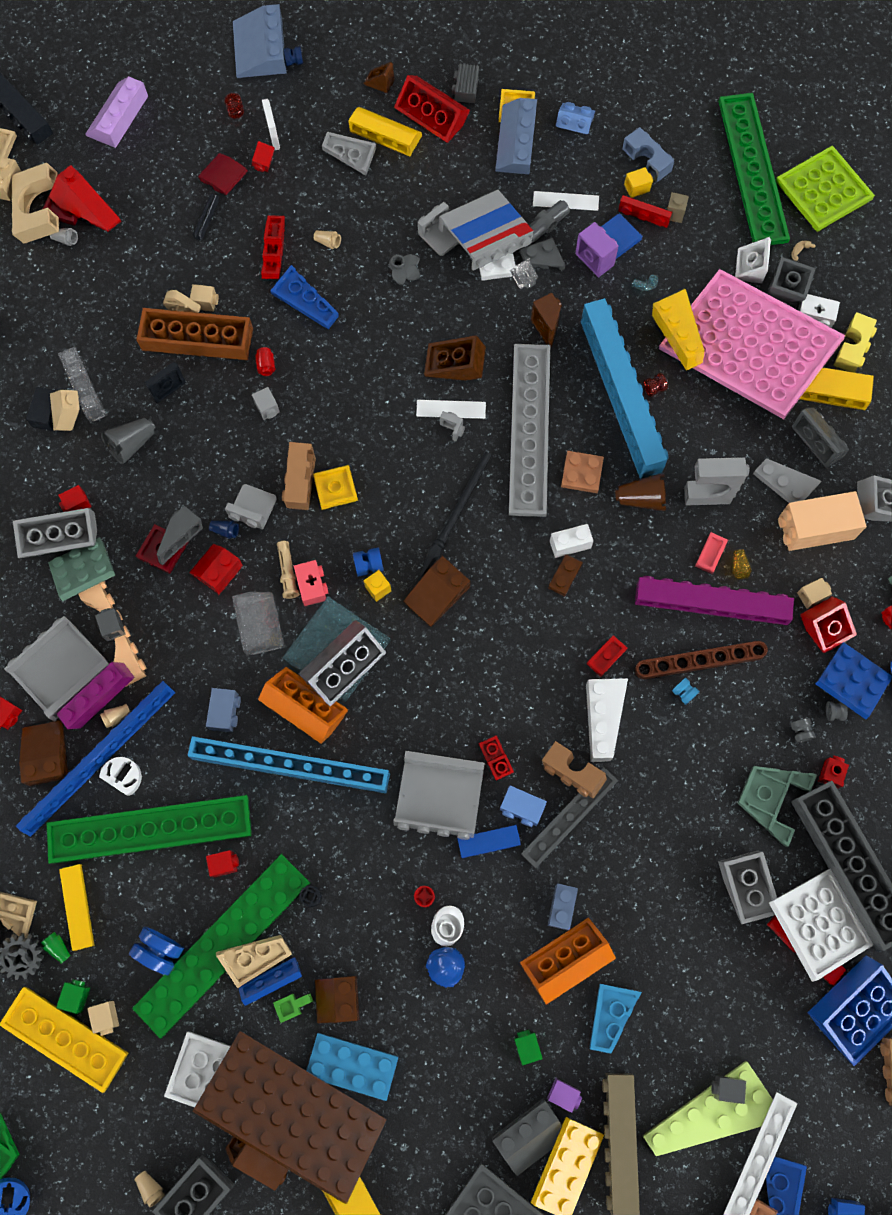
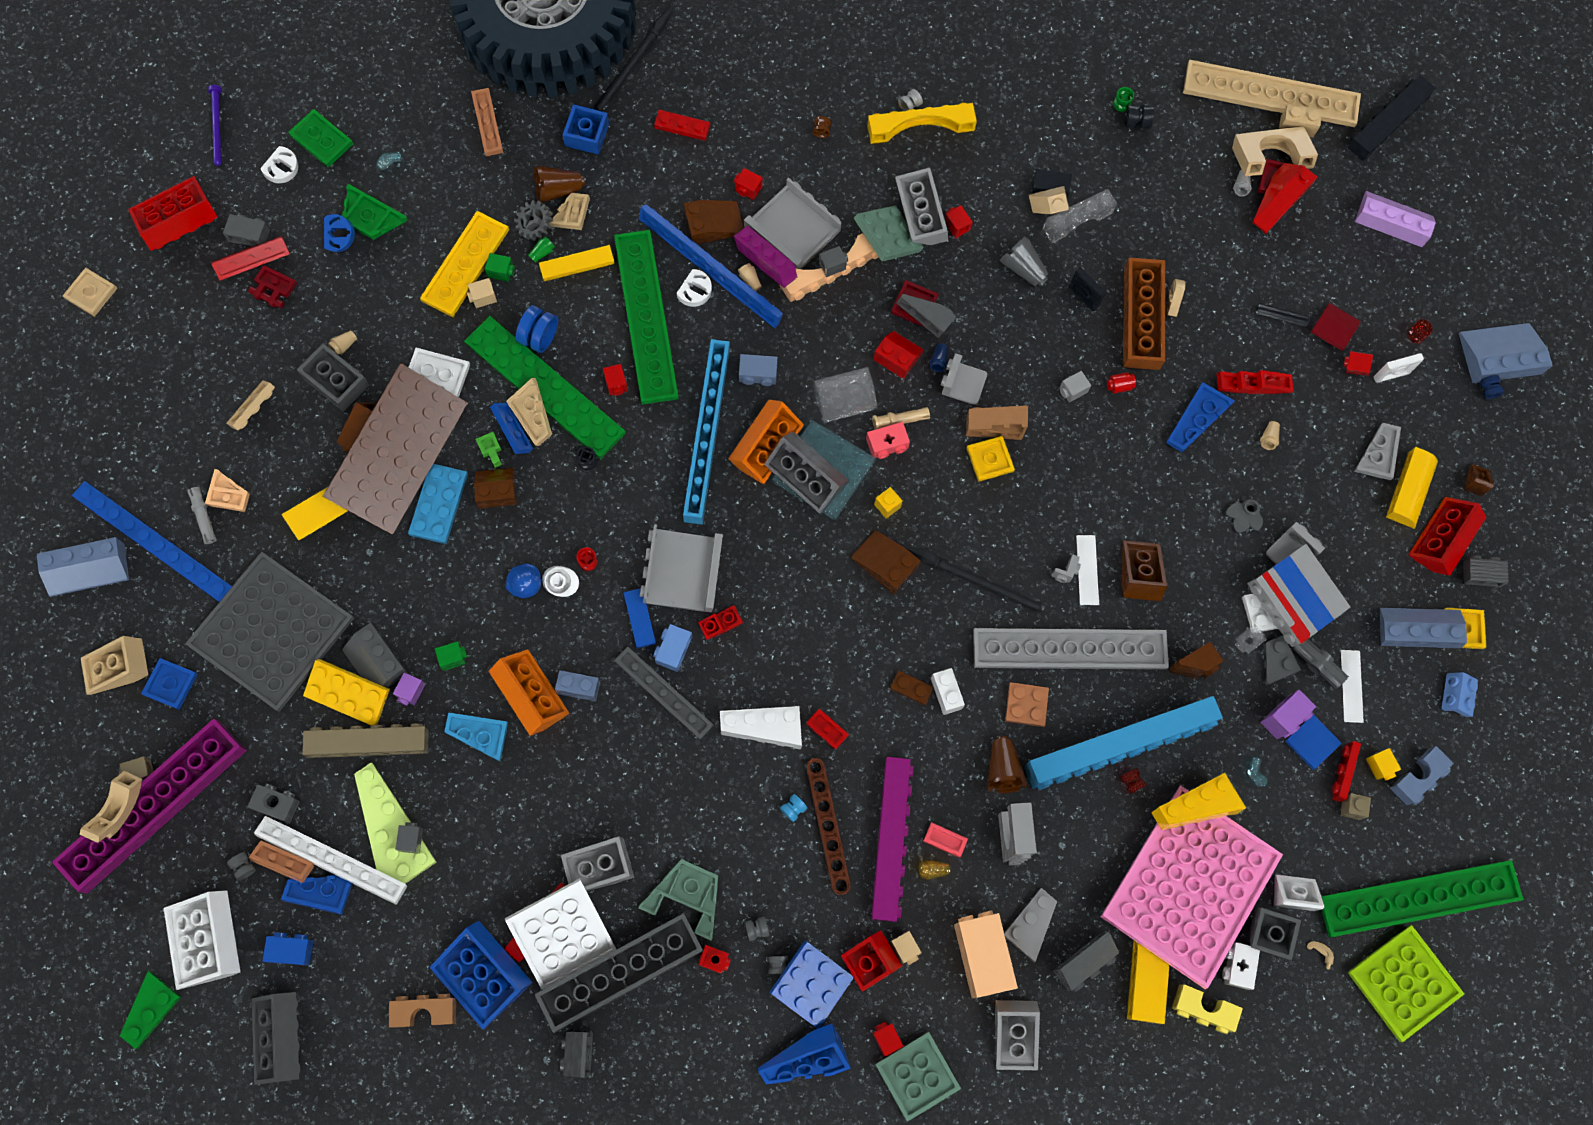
camera: 80 degrees right, 0 degrees up
(204, 296) = (1187, 319): tan brick -> none
(368, 561) = (912, 492): blue wheel -> none
(587, 780) = (717, 681): medium nougat arch -> none

